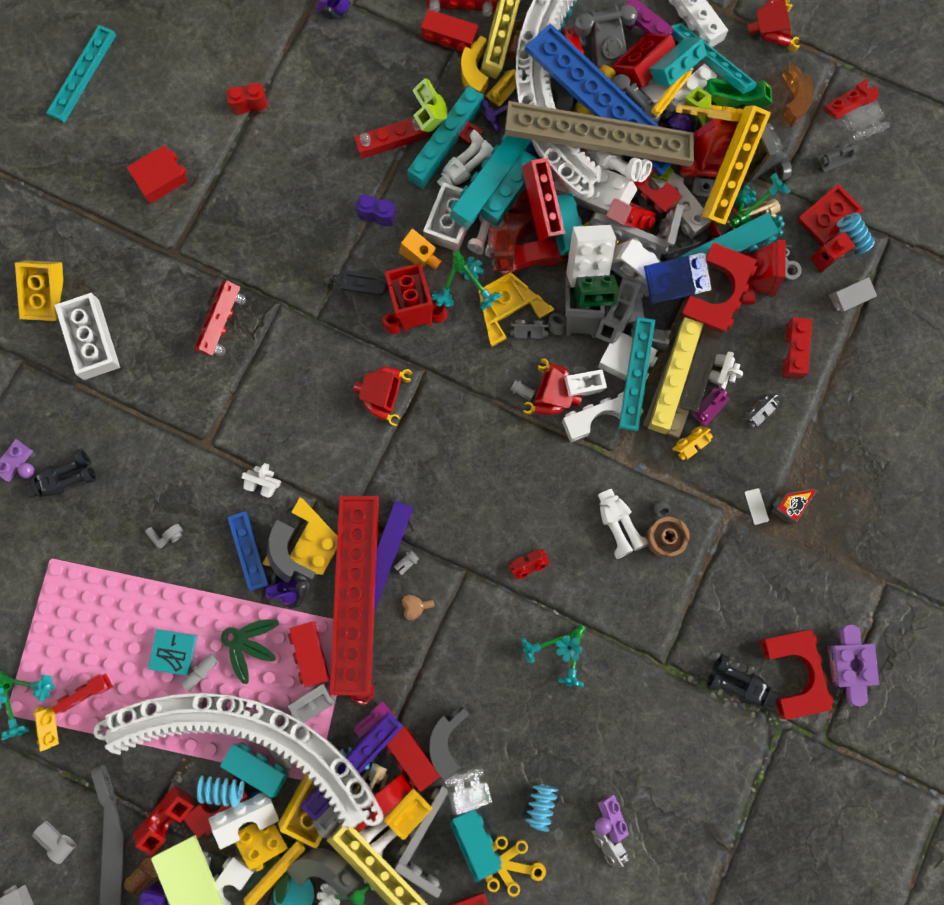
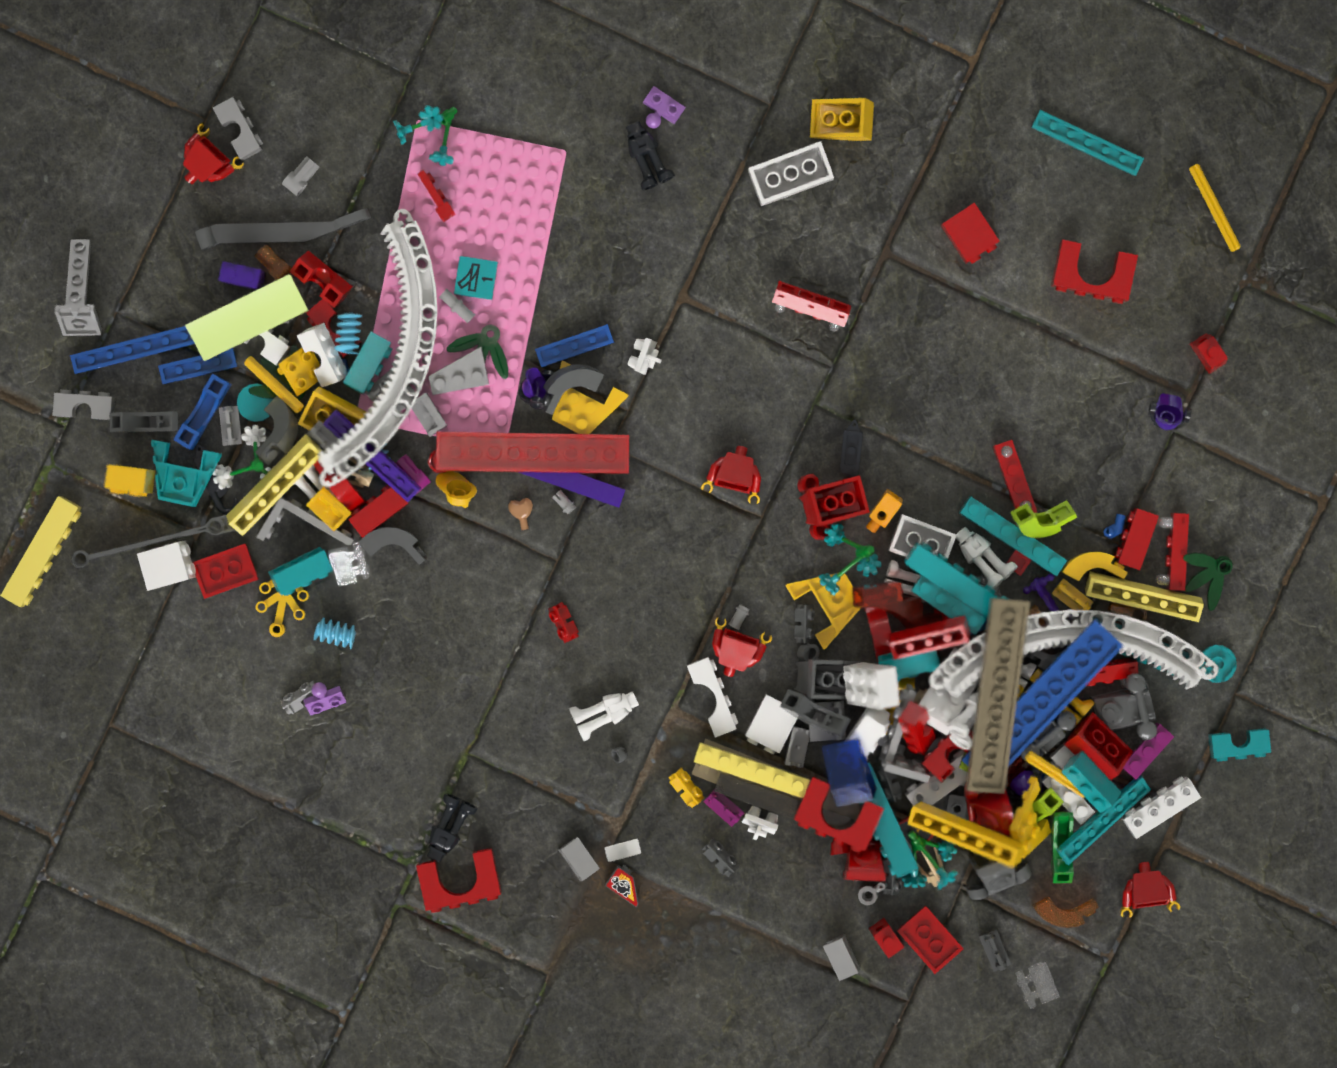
camera: 90 degrees right, 10 degrees up
(45, 727) = (399, 161): yellow hinge -> none
(172, 534) = (589, 271): light grey plate -> none
(204, 88) = (1067, 276): none -> red arch
(247, 98) = (1057, 328): red brick -> none
(271, 668) = (462, 374): none -> light grey wing
(309, 654) = (474, 410): red brick -> none
(376, 210) = (931, 459): dark purple brick -> none
(390, 674) = (456, 487): none -> yellow piece
(440, 51) = (1115, 529): none -> blue arm
(569, 648) = (481, 659): teal plant -> none
(585, 383) = (743, 679): white arch -> none
(596, 291) = (834, 690): dark green brick -> none
(636, 374) = (753, 731): teal tile -> none
(667, 526) = (584, 768): medium nougat brick -> none
(769, 549) = (579, 859): none -> light grey hinge
(799, 338) = (784, 897): red arch -> none
(846, 670) = (467, 934): medium lavender brick -> none
(852, 100) = (1059, 969): red plate -> none
(857, 232) = (906, 962): medium azure piece -> none

